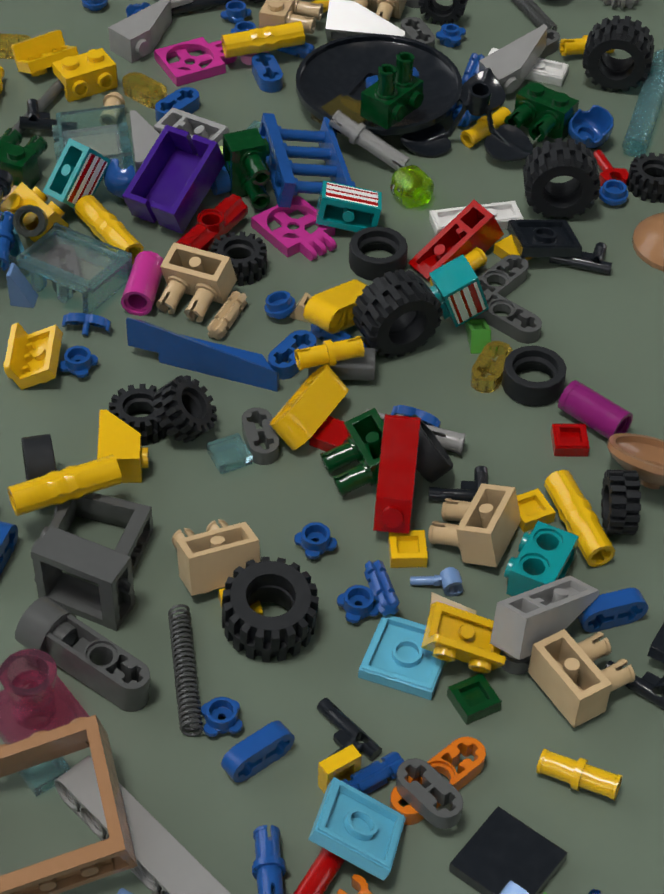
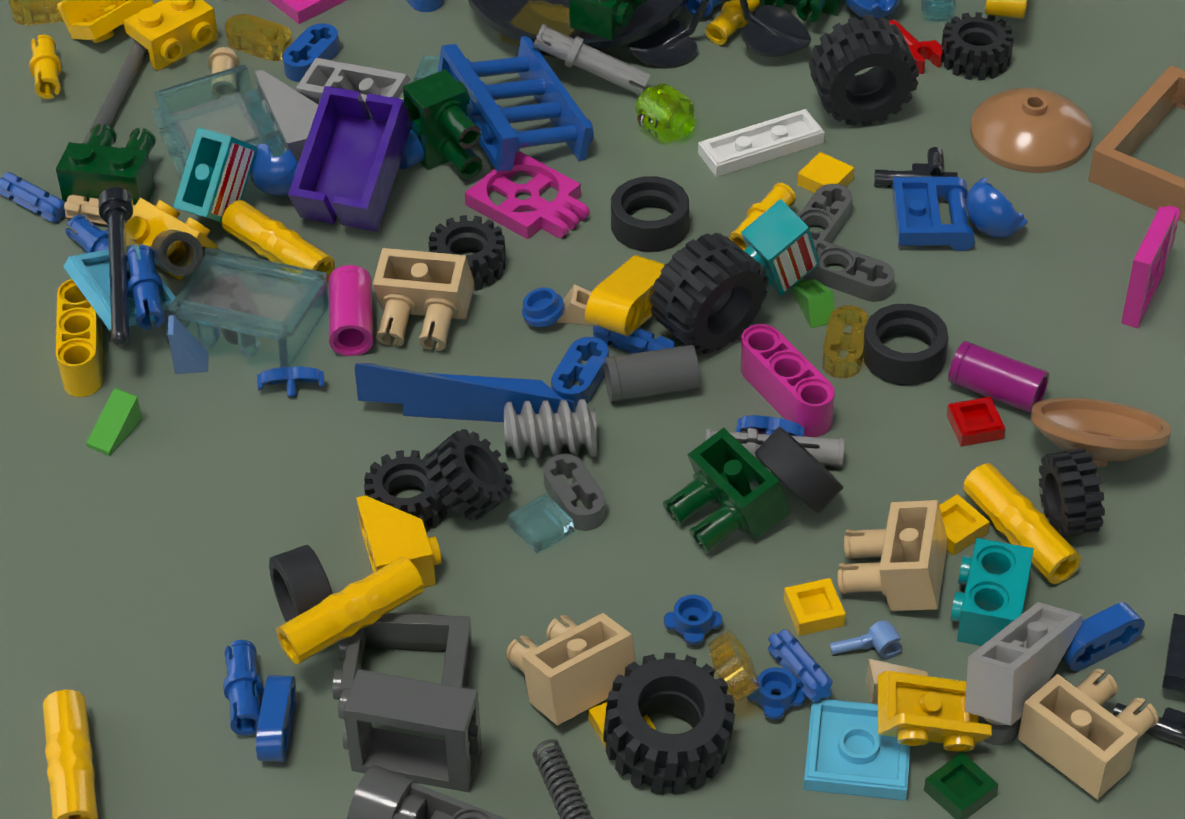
camera: 10 degrees left, 0 degrees up
(32, 356) = (235, 438): yellow bracket -> none
(36, 119) = (125, 104): black hose -> none
(78, 361) = (297, 435): blue plate -> none
(215, 222) = (419, 211): red piece -> none
(227, 315) = (476, 334): tan axle -> none
(254, 388) = (550, 429): none -> light grey piece
(309, 407) = (630, 441): yellow beam -> none
(329, 353) = (638, 363): yellow pin -> none
(329, 435) = (666, 472): red tile -> none
(331, 578) = (734, 665): none -> clear yellow beam
(348, 207) = (593, 157): teal brick -> none
(396, 474) = (782, 512): red slope -> none
(438, 385) = (787, 379): none -> dark pink beam
(467, 489) = (867, 514): black hose -> none
(468, 230) = (763, 161): red slope -> none
(544, 238) = (861, 154): black tile -> none
(574, 285) = (919, 214): none -> blue plate
(613, 192) = (932, 75): blue plate -> none
(627, 293) = (992, 211): none -> blue hair

